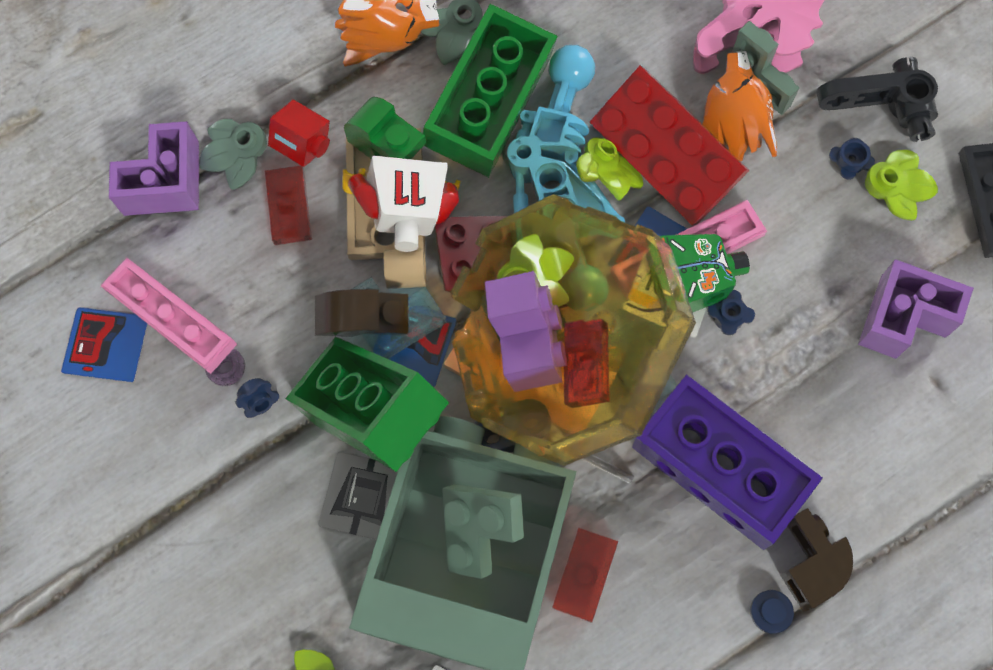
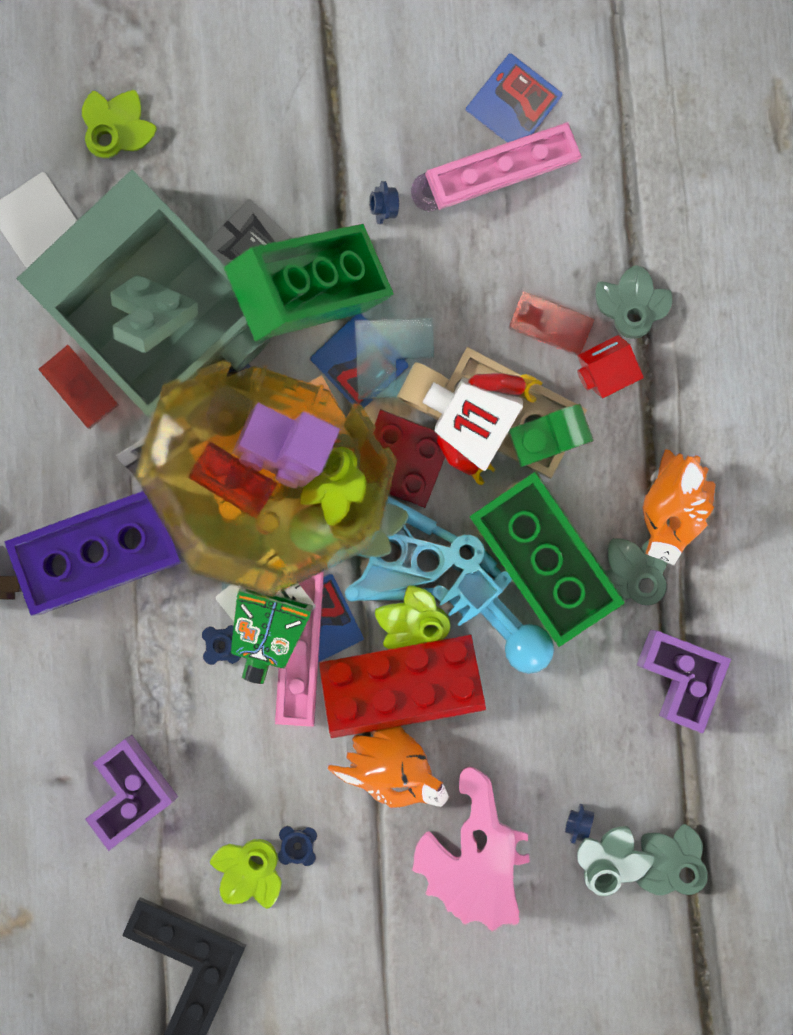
camera: 115 degrees right, 15 degrees up
(163, 181) = (633, 231): medium lavender brick -> none
(361, 312) = (392, 322): dark brown brick -> none
(760, 52) = (426, 816): sand green plate -> none
(890, 90) = (341, 948): black piece -> none

